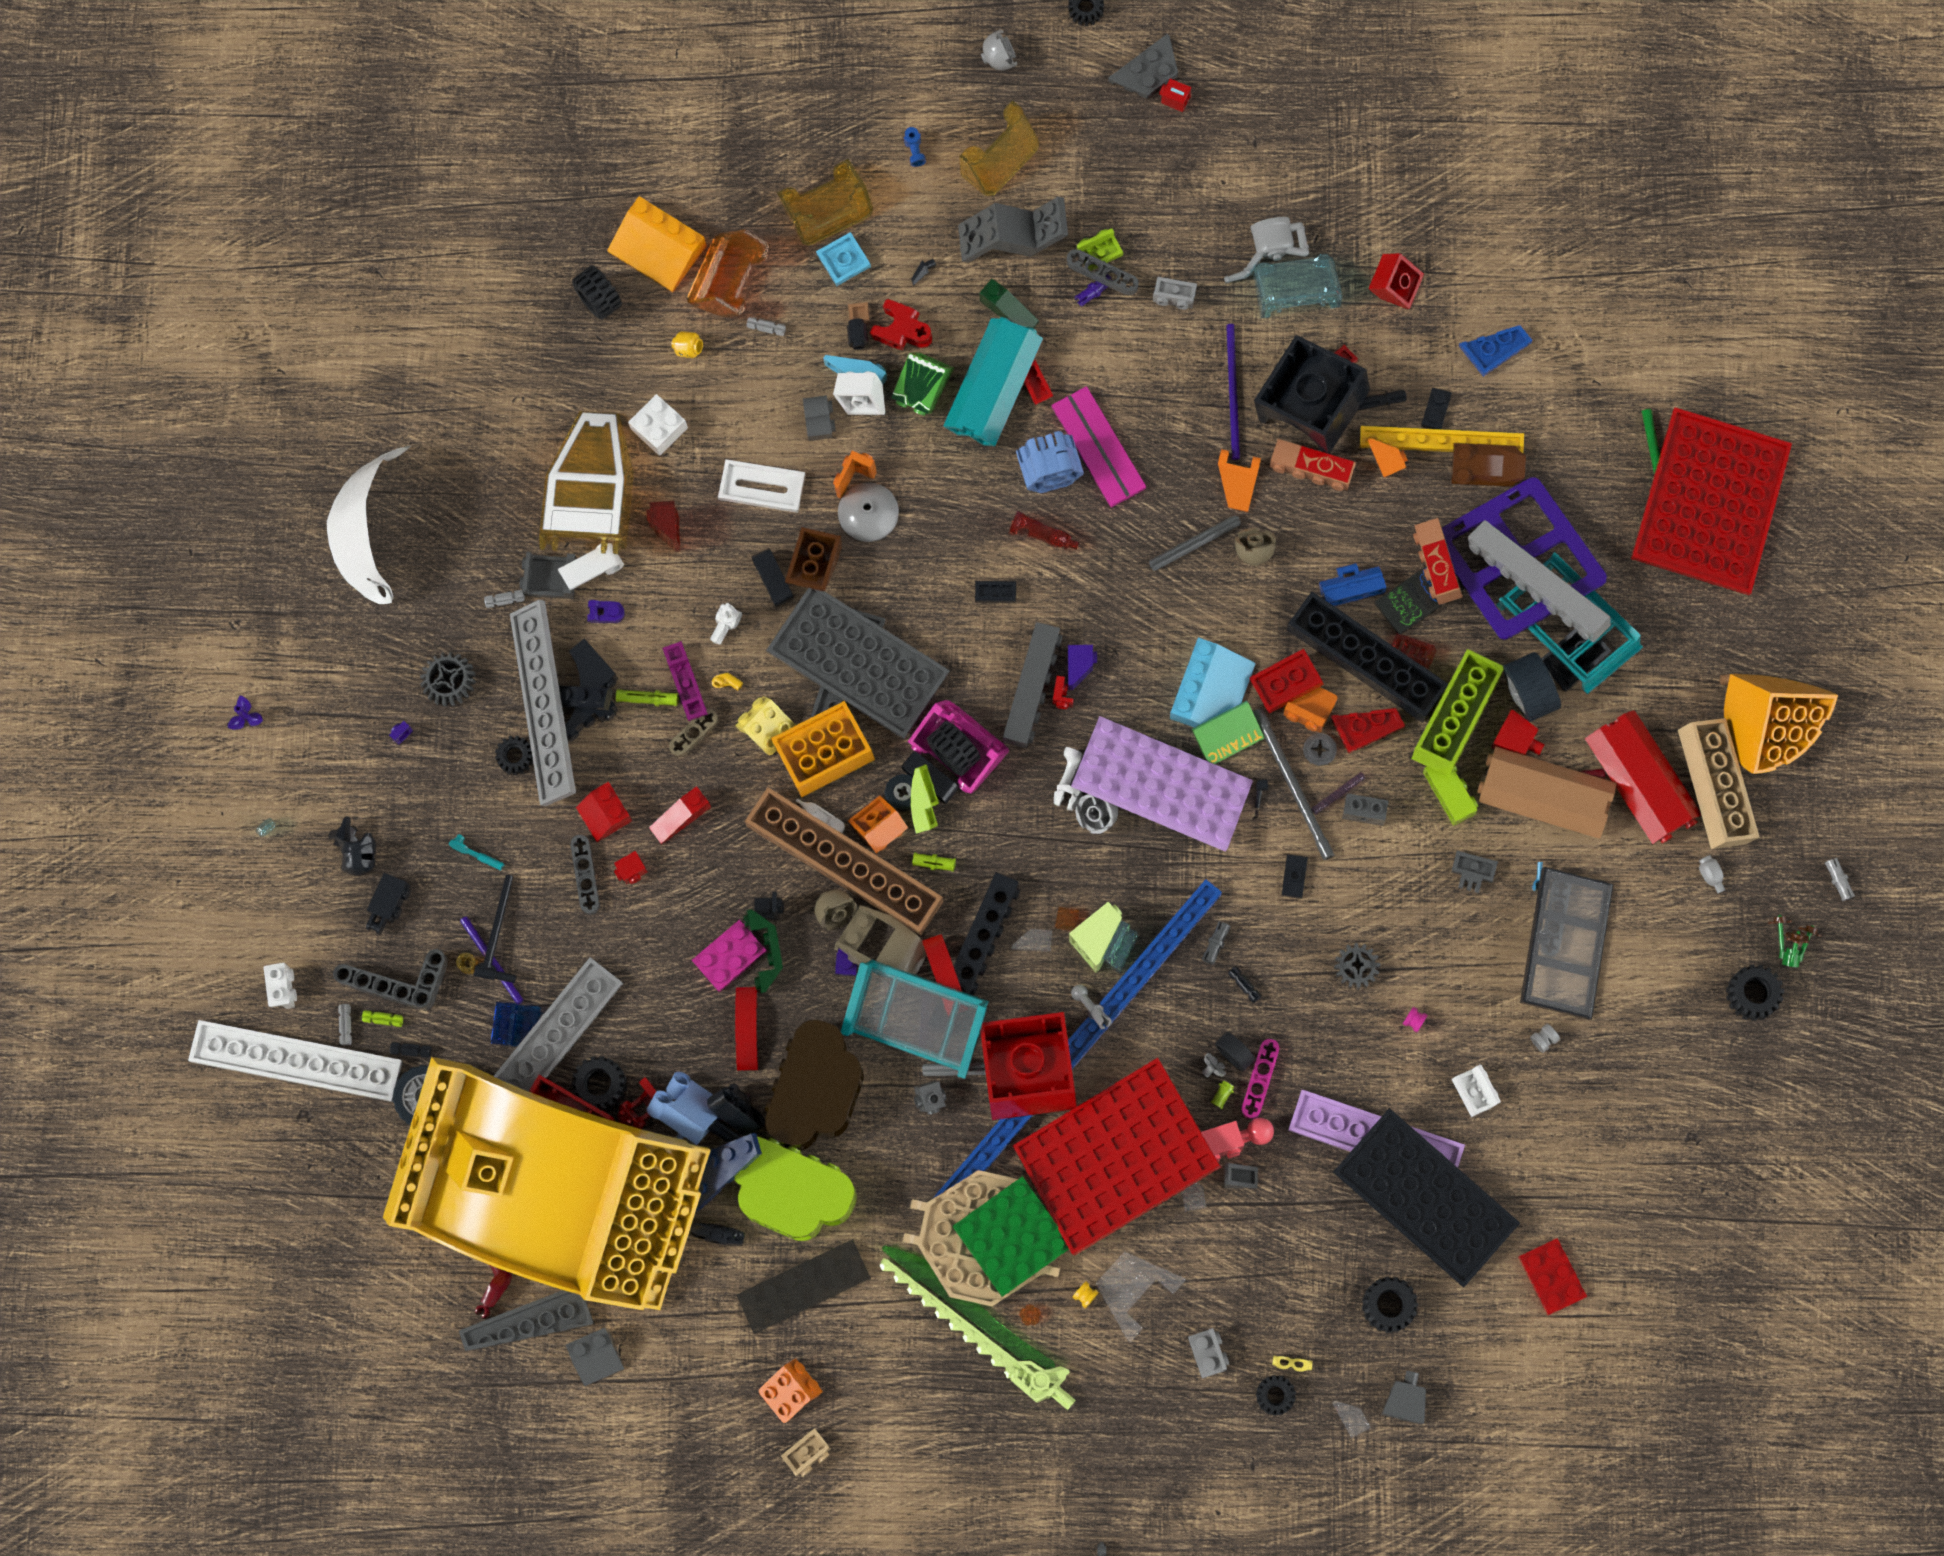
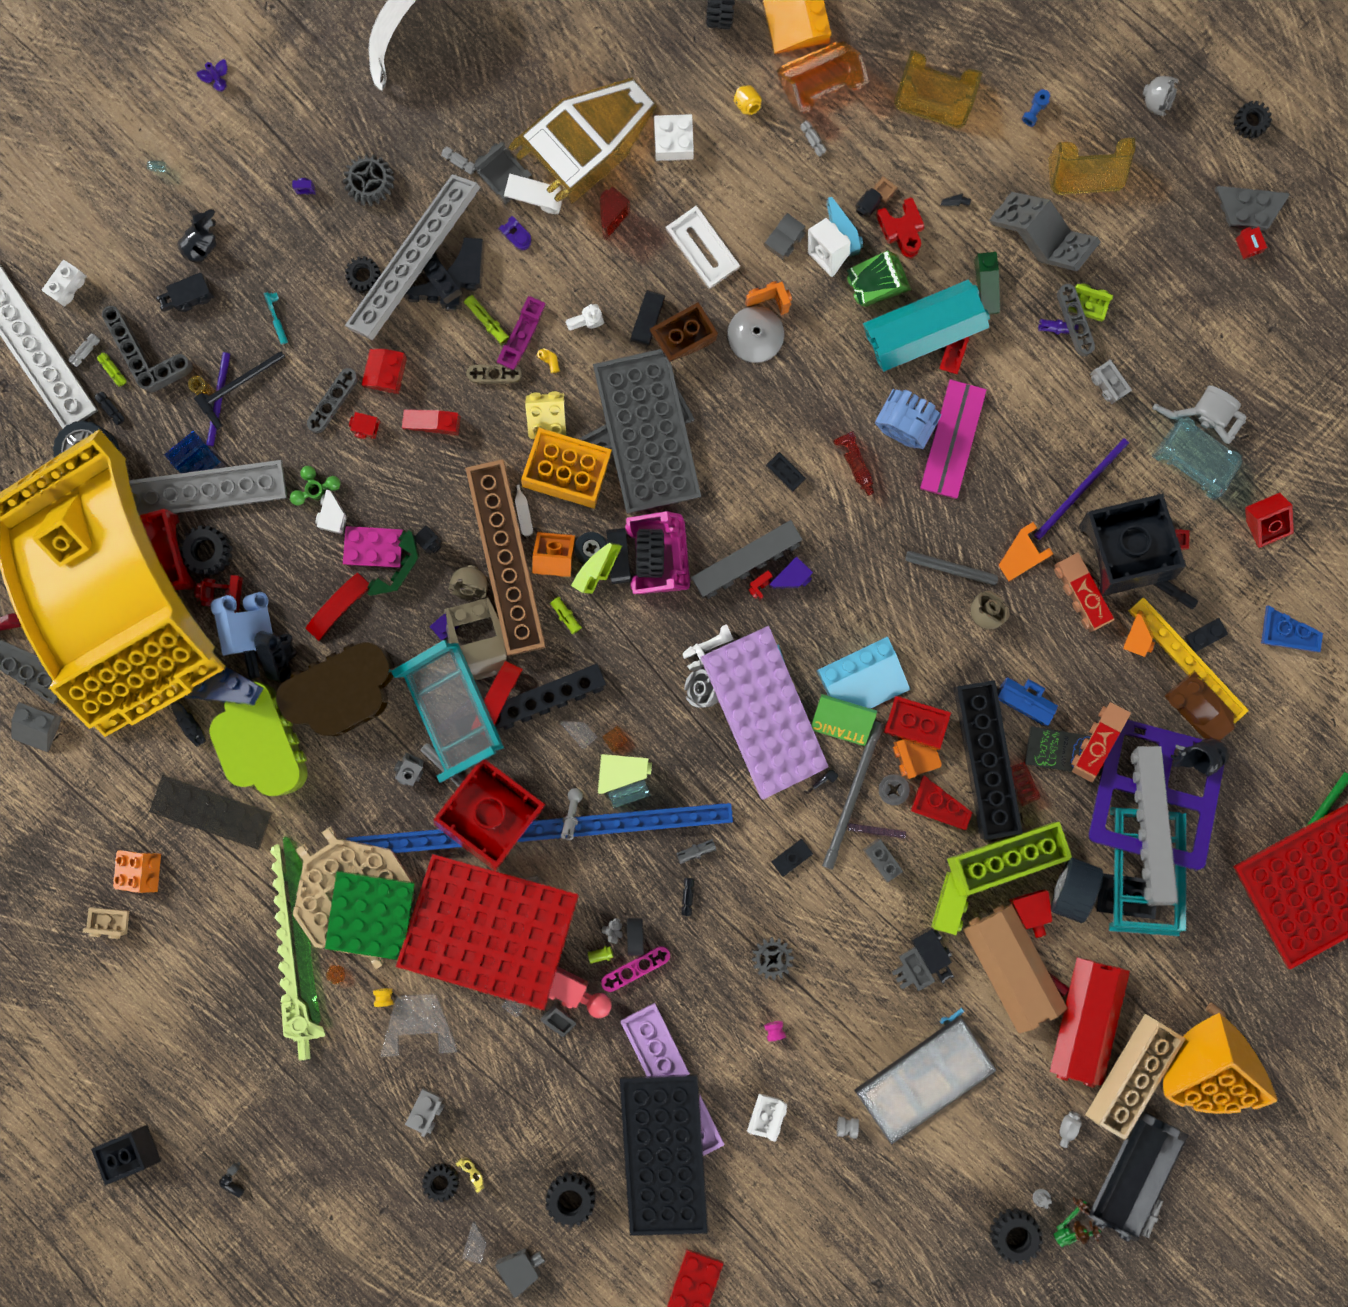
camera: 35 degrees right, 10 degrees up
(622, 947) = (308, 473): none -> bright green piece
(673, 960) = (332, 516): none -> white slope
(843, 259) = (910, 141): medium azure plate -> none
(1475, 841) = (933, 953): none -> black brick
(1524, 497) = (1204, 756): none -> black piece
(1746, 947) = (1042, 1198): none -> light grey piece
(1798, 857) = (1138, 1177): none -> black panel

